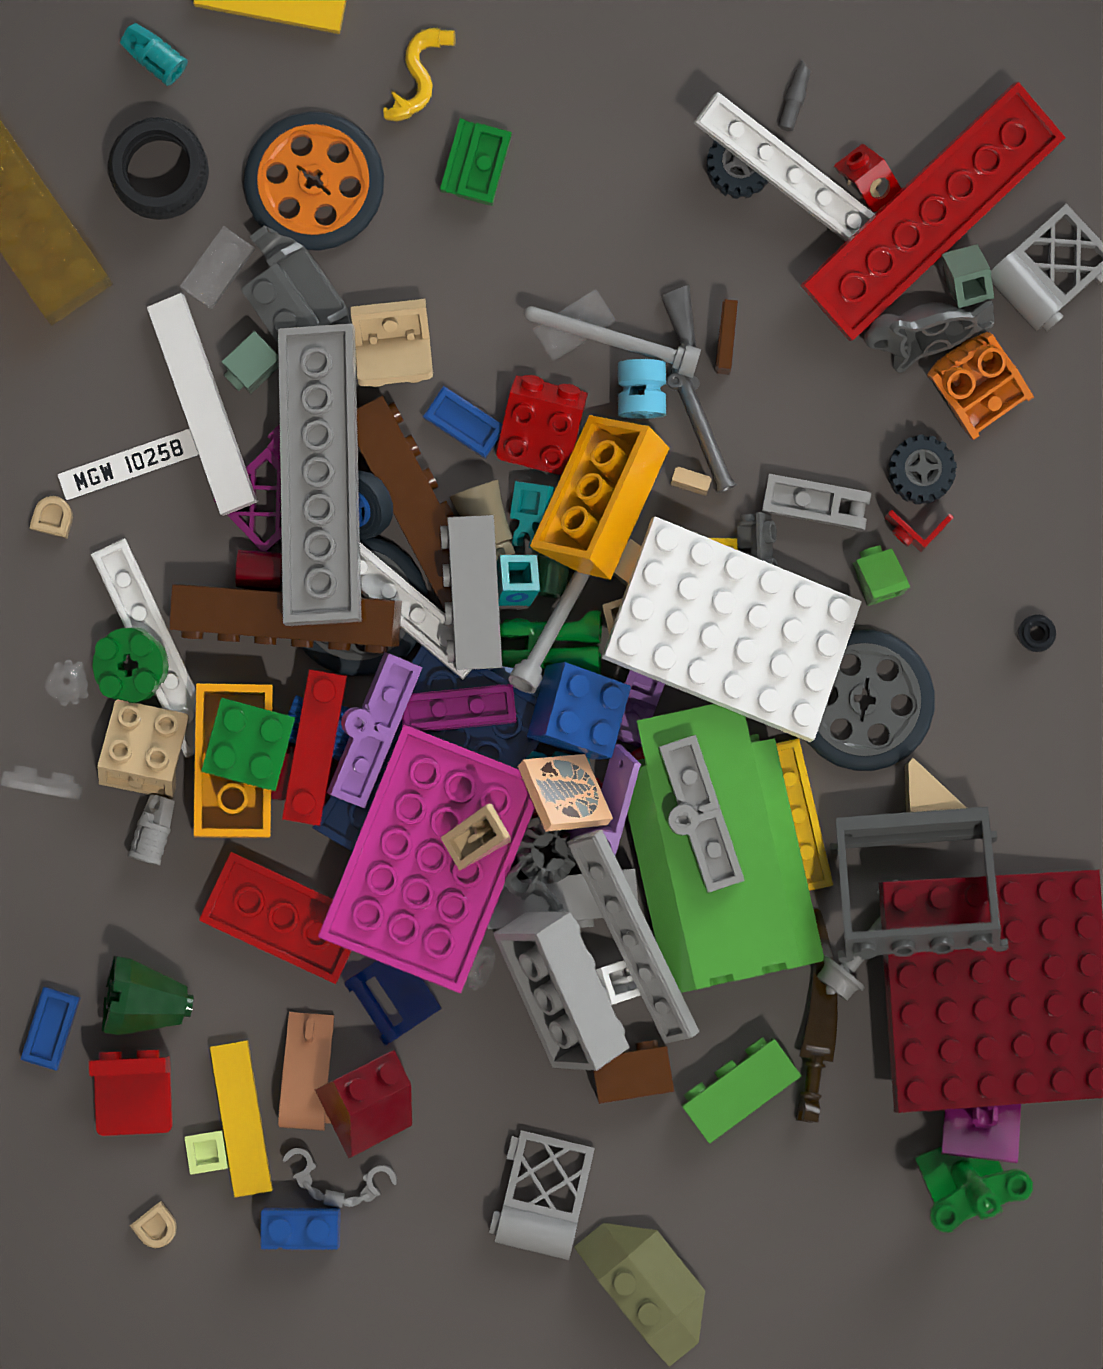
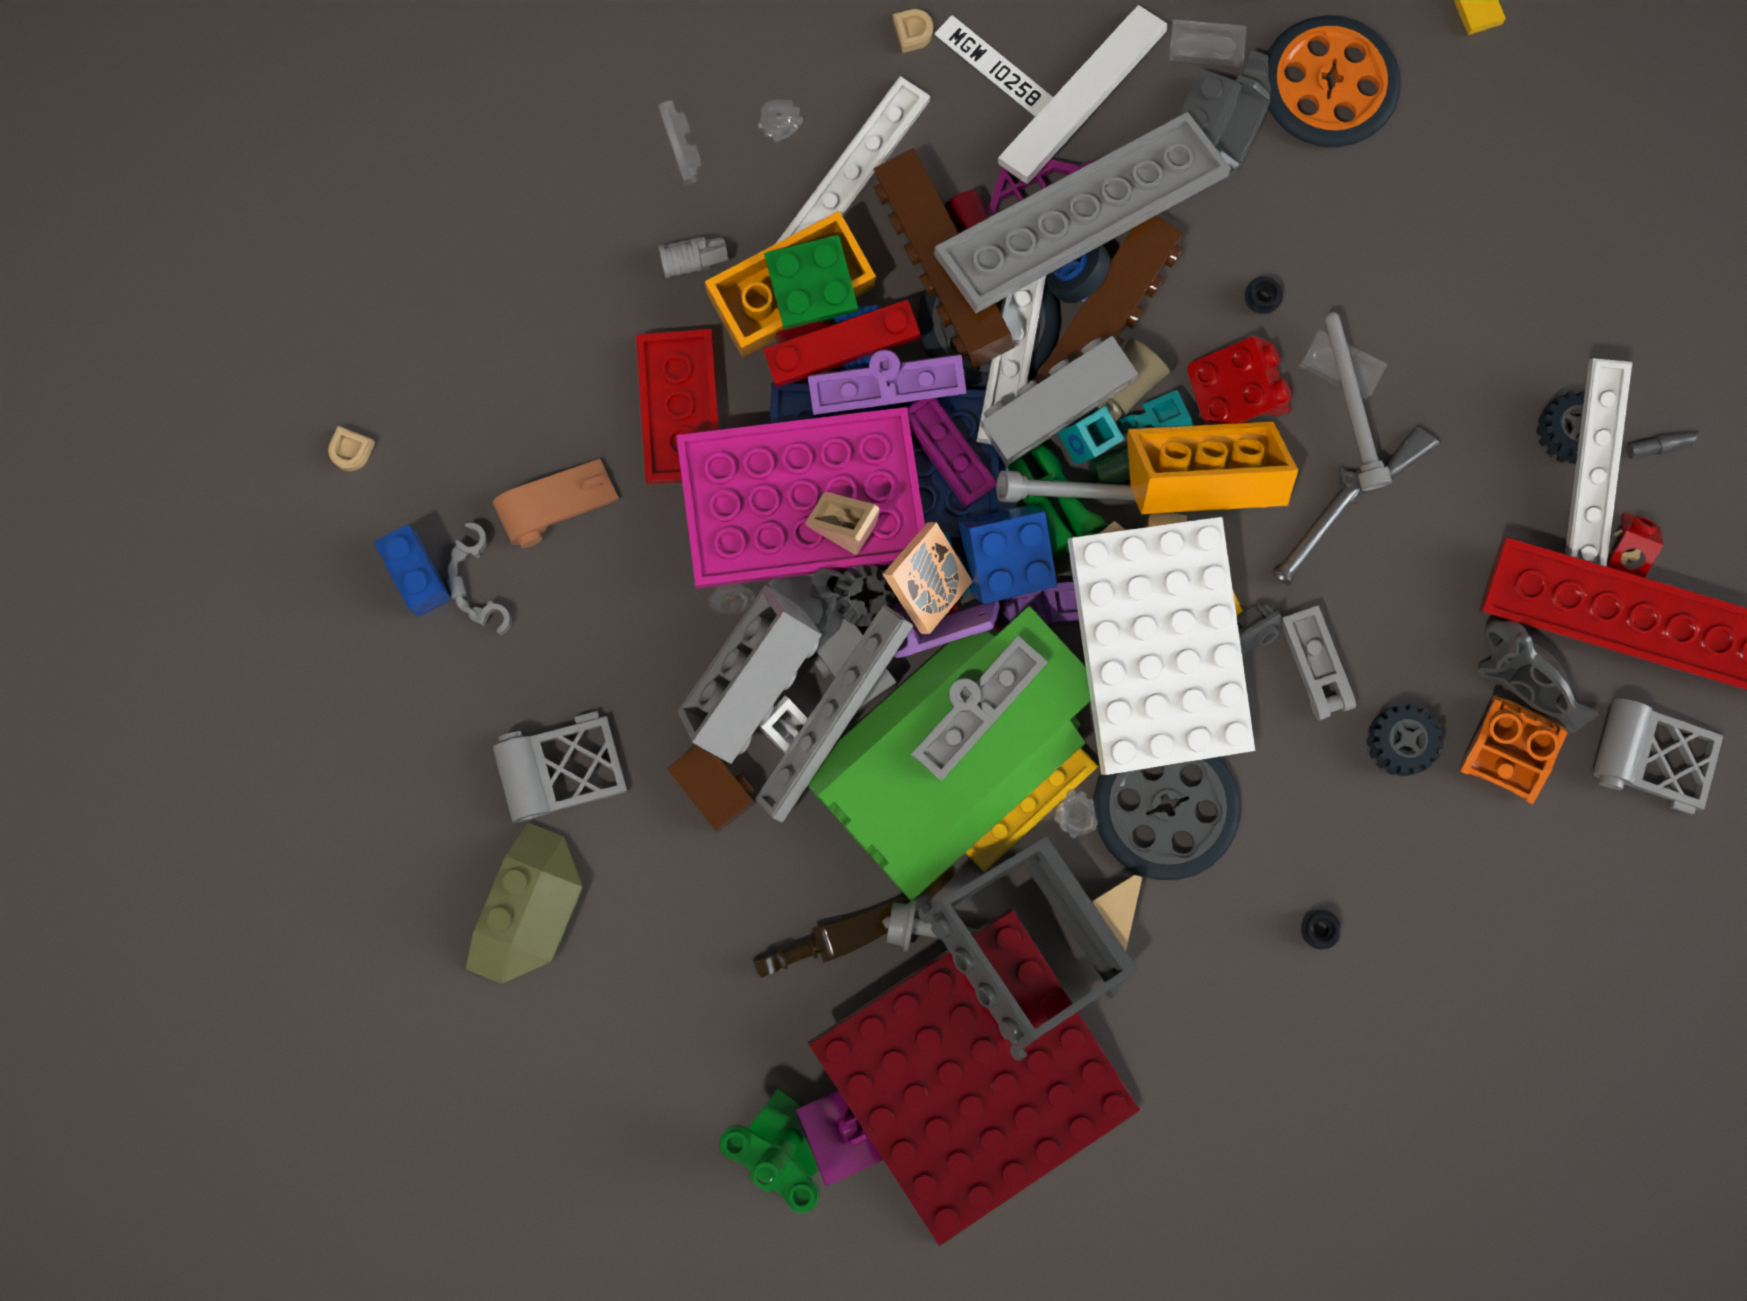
camera: 60 degrees right, 5 degrees down
(50, 1028) = (473, 267): blue tile -> none
(109, 659) = (822, 138): green plate -> none
(132, 1093) = (454, 363): red bracket -> none
(142, 749) = (756, 205): tan bracket -> none
(142, 999) = (540, 322): dark green cone -> none
(206, 1152) = (438, 456): yellowish green tile -> none
(241, 1118) = (483, 469): yellow tile -> none
(250, 363) = (1141, 111): sand green brick -> none
(368, 1103) = (554, 566): dark red slope -> none
(392, 343) = (1235, 216): tan bracket -> none
(406, 992) = (672, 551): clear blue plate -> none
(426, 38) = (1439, 119): yellow animal -> none
(464, 422) = (1200, 320): blue tile -> none
(467, 345) = (1266, 285): none -> black plate
(476, 162) = (1432, 204): green plate -> none
(642, 375) = (1330, 449): medium azure wheel -> none
(691, 481) = (1269, 541): tan tile -> none
(726, 337) = (1415, 500): reddish brown tile -> none
(740, 1088) = (751, 889): bright green brick -> none
(833, 775) = (1082, 815): none -> clear animal
(880, 575) = (1287, 755): bright green slope -> none
(908, 536) = (1338, 761): red bracket -> none
(968, 276) = (1605, 681): sand green brick -> none

